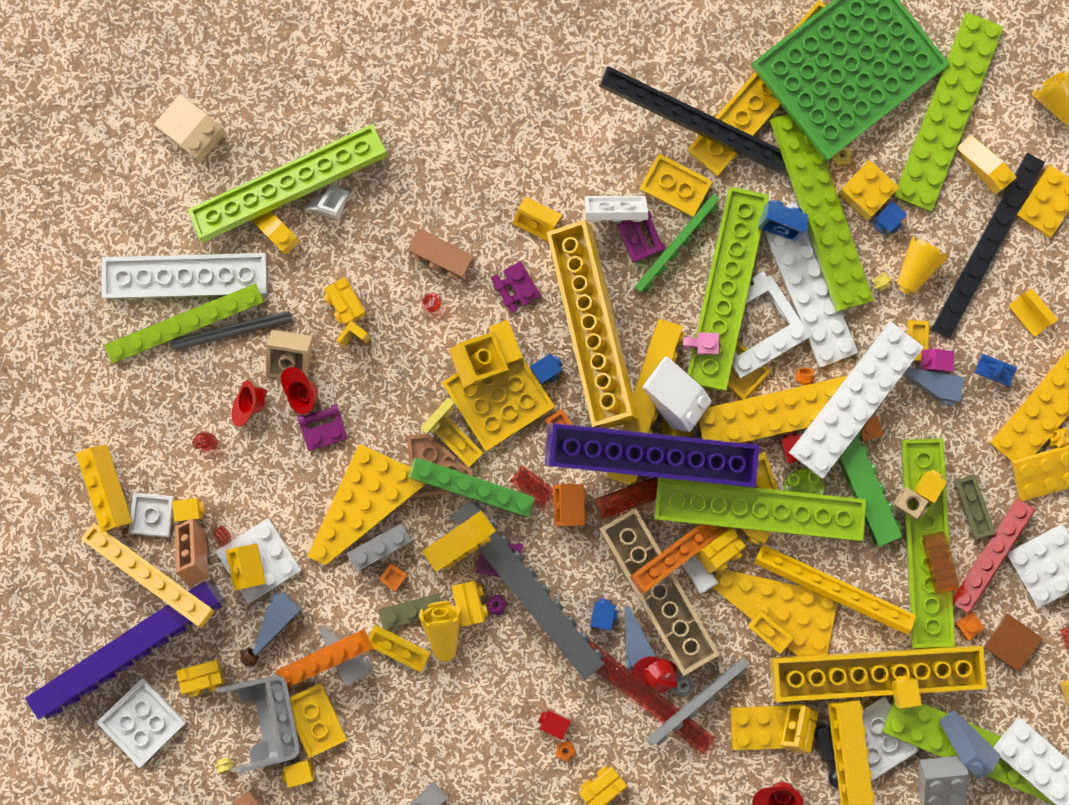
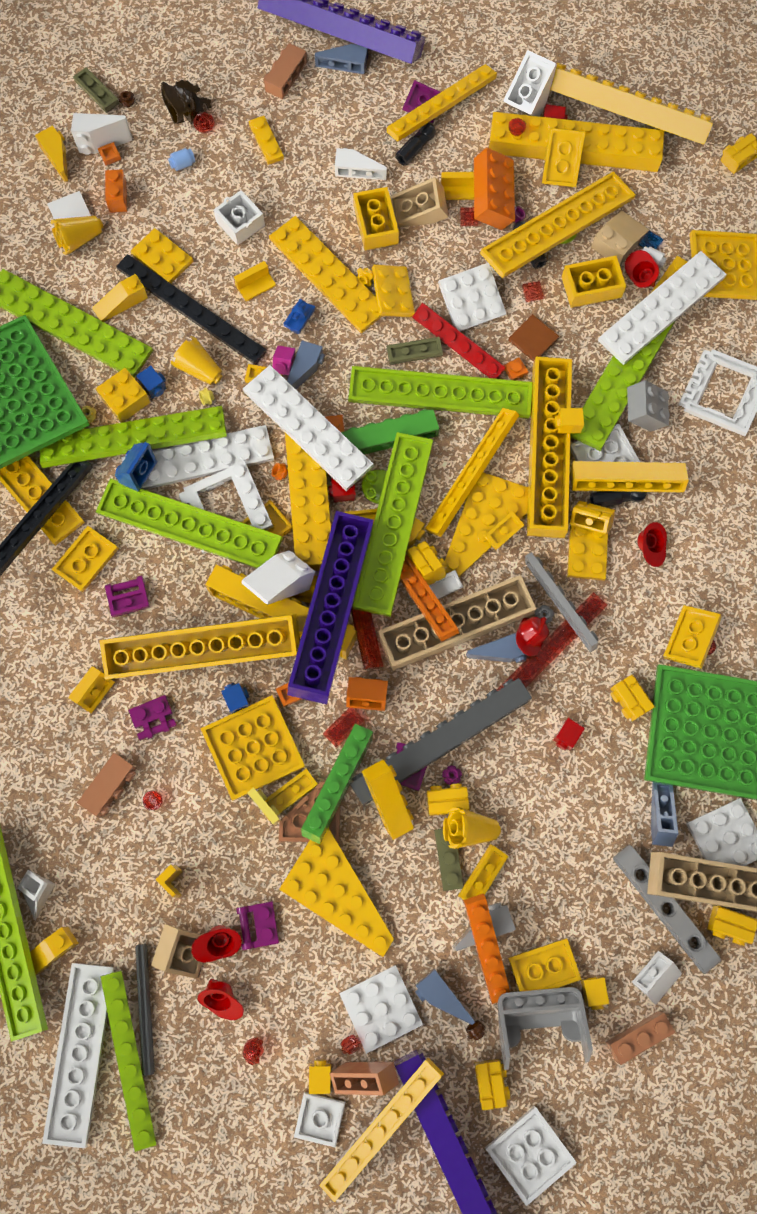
camera: 85 degrees left, 10 degrees down
(104, 488) = (284, 1169): yellow brick -> none
(224, 765) = (581, 1069): light yellow plate -> none
(245, 566) = (385, 1022): yellow panel -> none
(344, 301) = (135, 887): yellow brick -> none
(379, 547) = (383, 881): light grey brick -> none
(393, 577) = (413, 872): orange plate -> none
(478, 359) = (215, 760): yellow slope -> none
(506, 341) = (203, 732): yellow tile -> none
(560, 751) = (589, 728): orange plate -> none
(603, 614) = (472, 676): blue brick -> none
(616, 208) = (95, 613): white plate -> none
(683, 238) = (146, 570): bright green plate -> none
(705, 343) = (235, 548): bright pink plate -> none
(901, 503) = (404, 405): tan brick -> none
(930, 486) = (392, 380): yellow brick -> none
(940, 562) = (459, 381): clear orange beam -> none
(970, 746) = (620, 377): sand blue slope -> none

